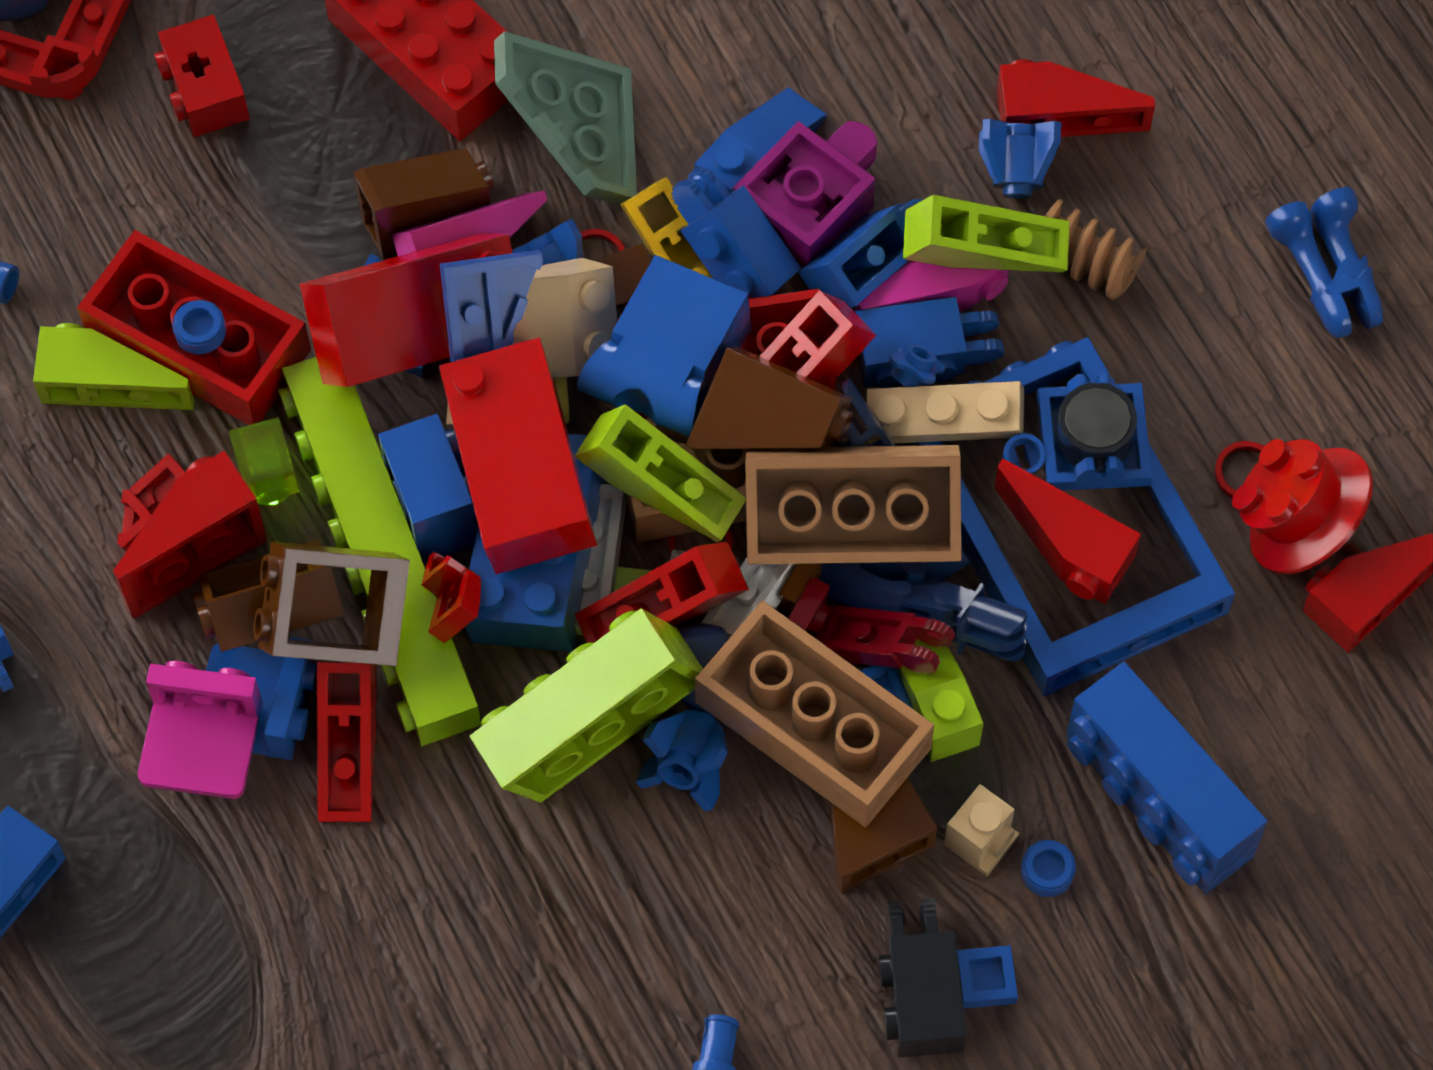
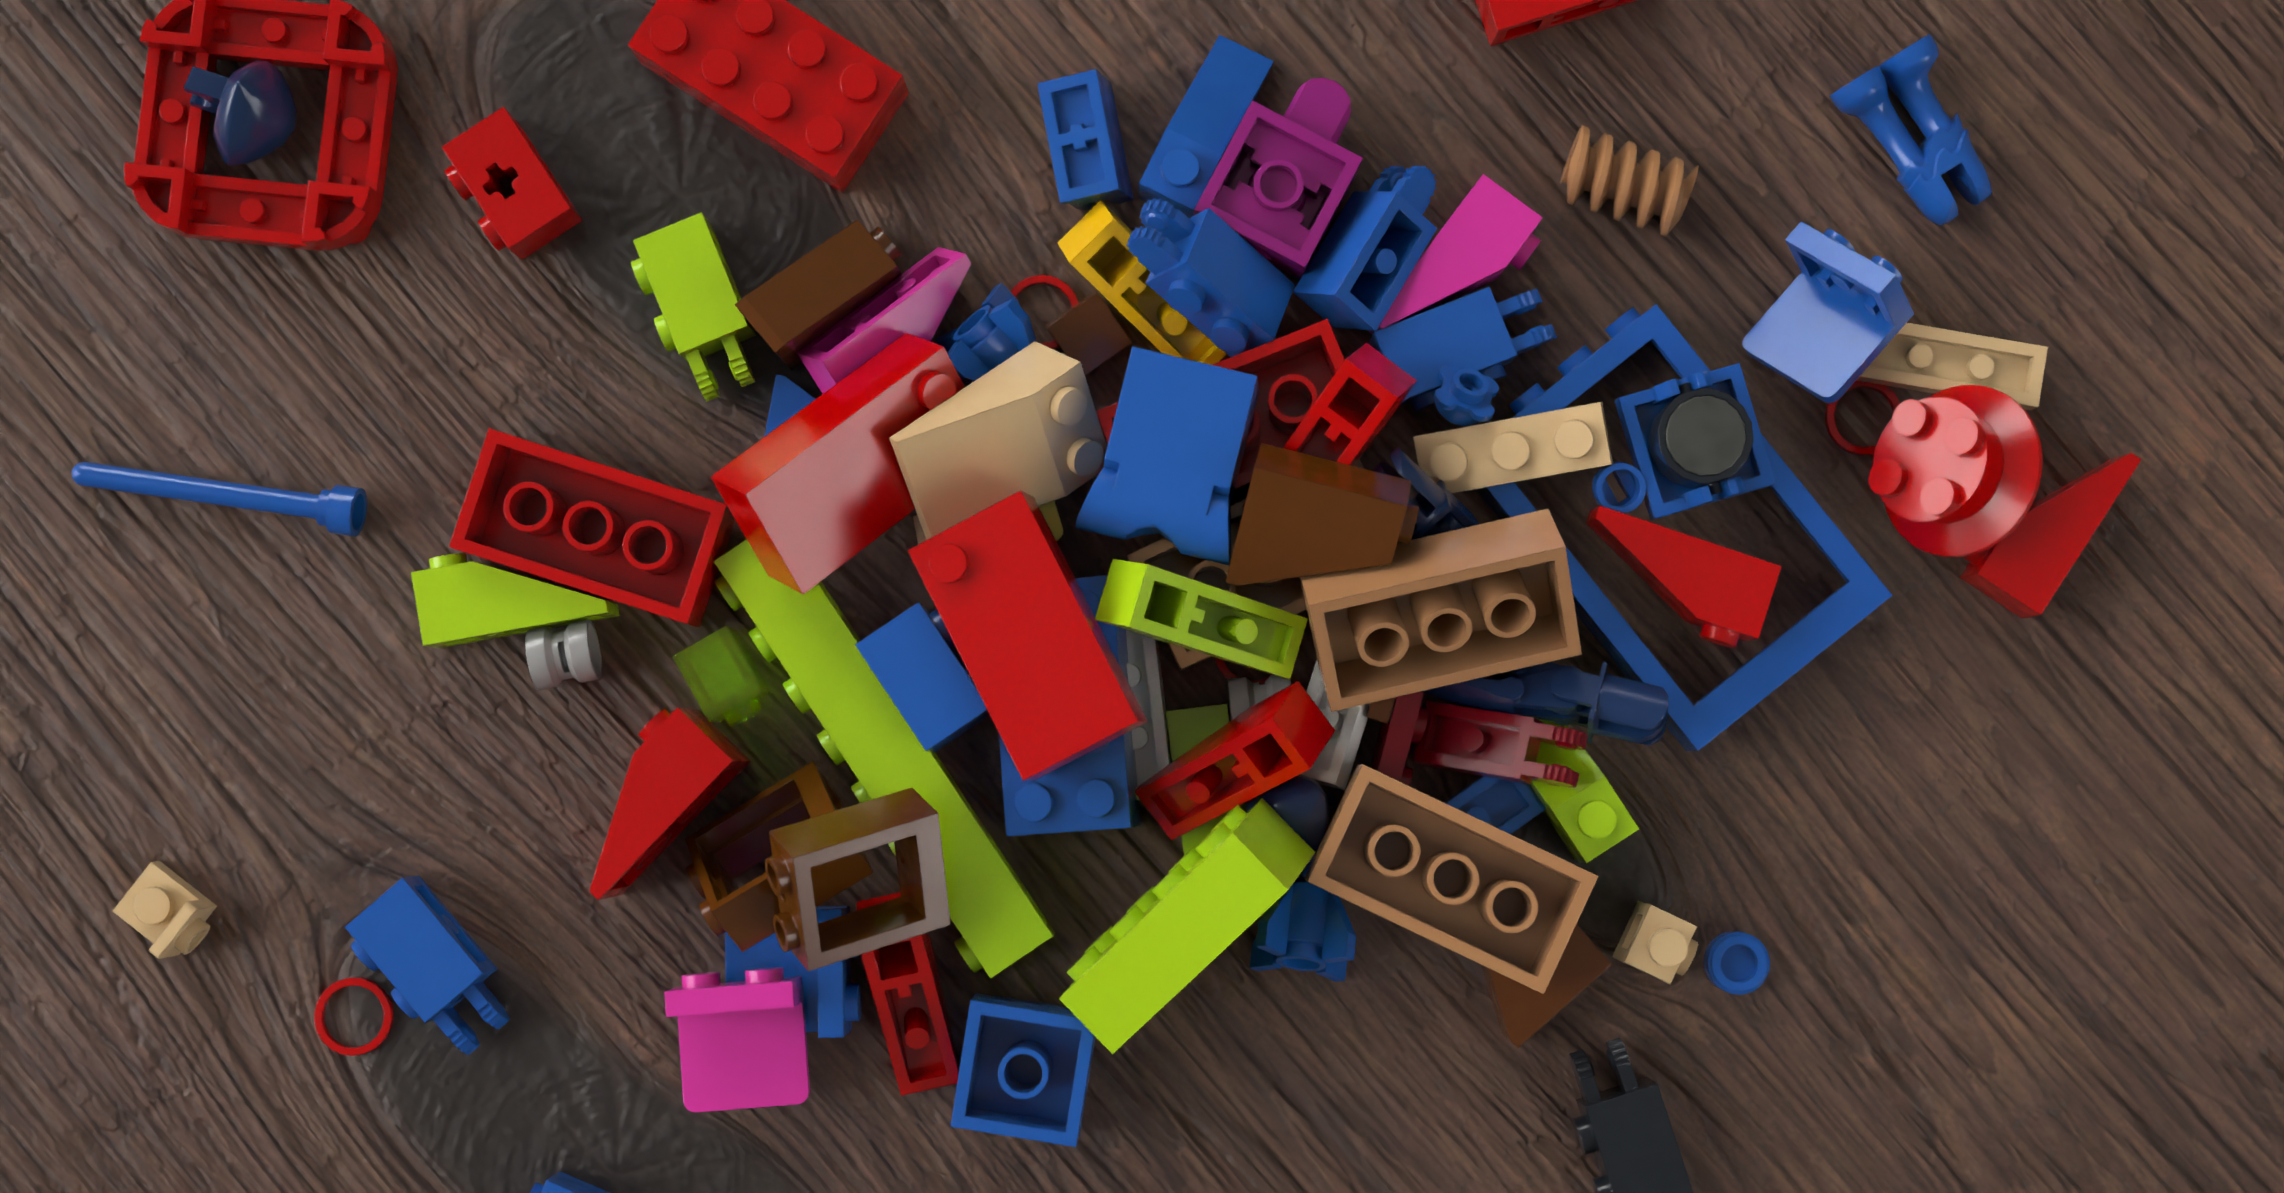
camera: 10 degrees left, 20 degrees up
(141, 420) = (563, 654): none -> light grey wheel
(145, 497) = (606, 747): red slope -> none
(199, 327) = (602, 543): blue tile -> none
(323, 183) = (695, 297): none -> lime hinge
(427, 808) = (1023, 1070): none -> blue brick
(456, 592) = (997, 812): red slope -> none
(486, 300) = (944, 457): blue wing -> none
(576, 110) = (976, 138): sand green plate -> none
(661, 131) = (1085, 140): none -> blue hinge
(983, 237) = (1513, 211): lime slope -> none
(987, 976) = (1697, 1107): blue tile -> none
(1018, 154) = (1521, 73): blue brick -> none
(1164, 779) = (1859, 846): blue brick -> none
(1234, 380) = (1830, 316): none -> bracket
(1288, 419) = (1941, 358): none -> tan plate

